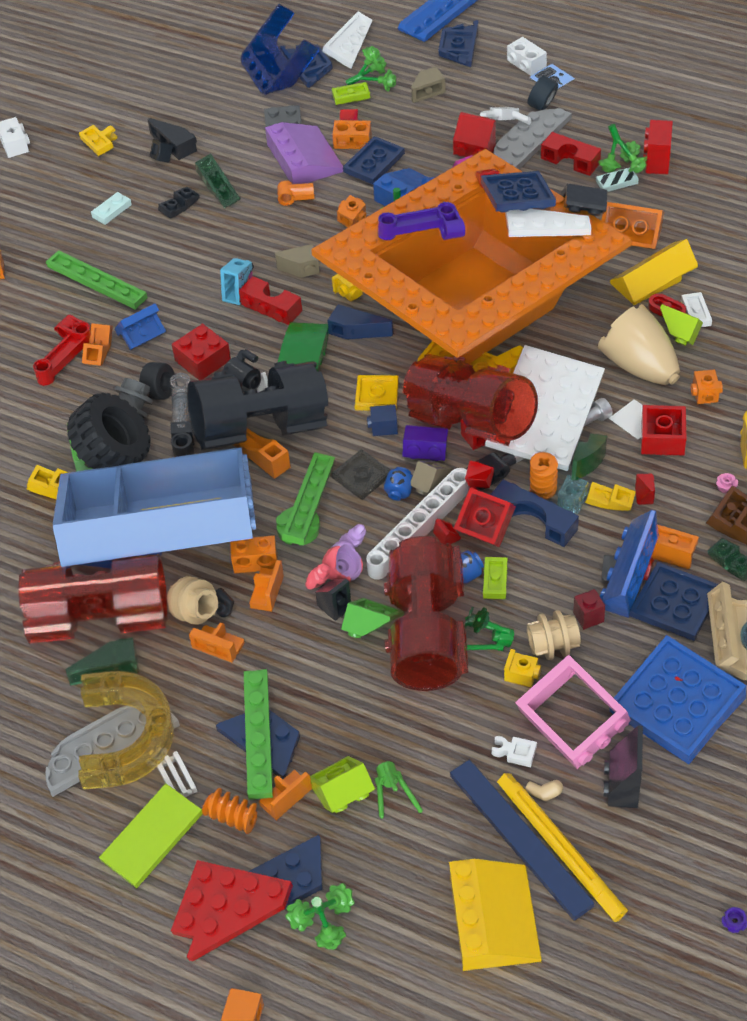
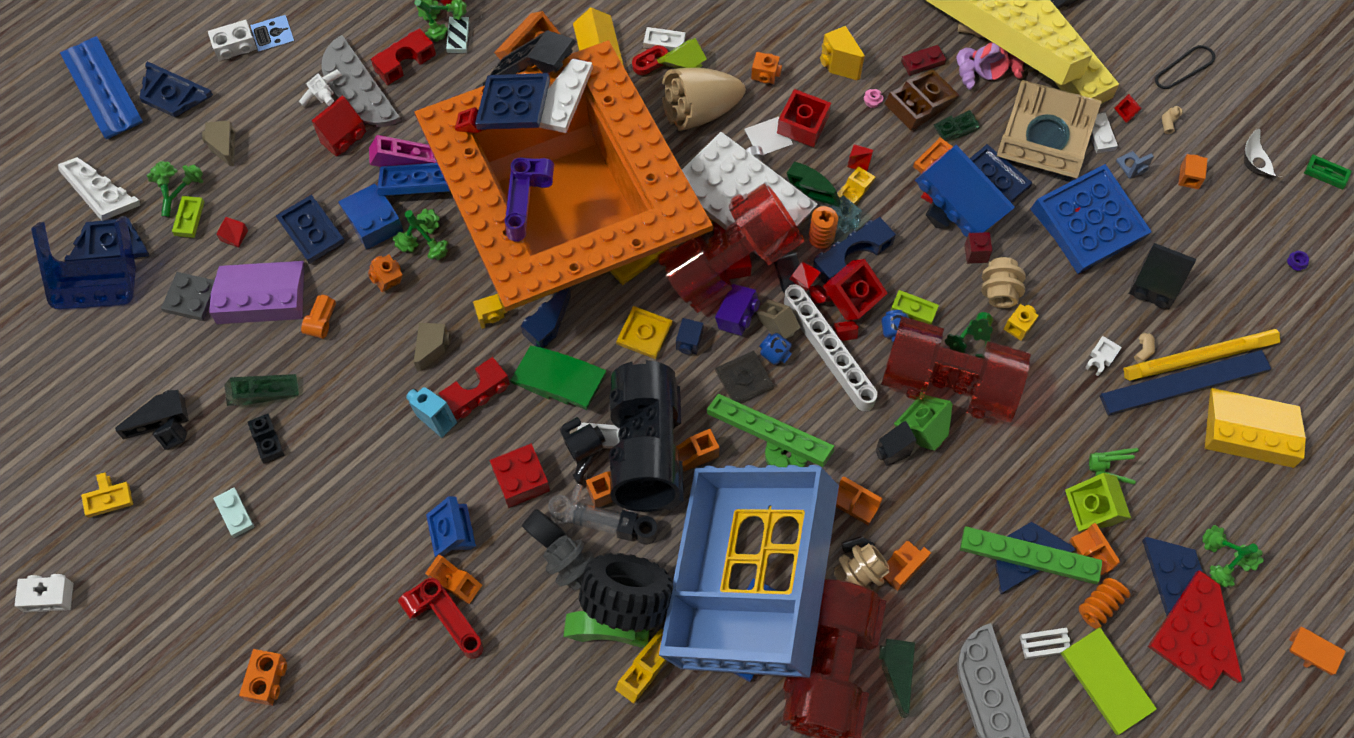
camera: 75 degrees left, 15 degrees up
(97, 279) = (348, 556): bright green plate -> none
(148, 749) = (1017, 646): clear yellow piece -> none
(340, 555) = (857, 425): hair -> none
(351, 134) = (263, 237): orange brick -> none
(542, 93) = (303, 46): black wheel -> none
(550, 684) = (1055, 308): bright pink window -> none

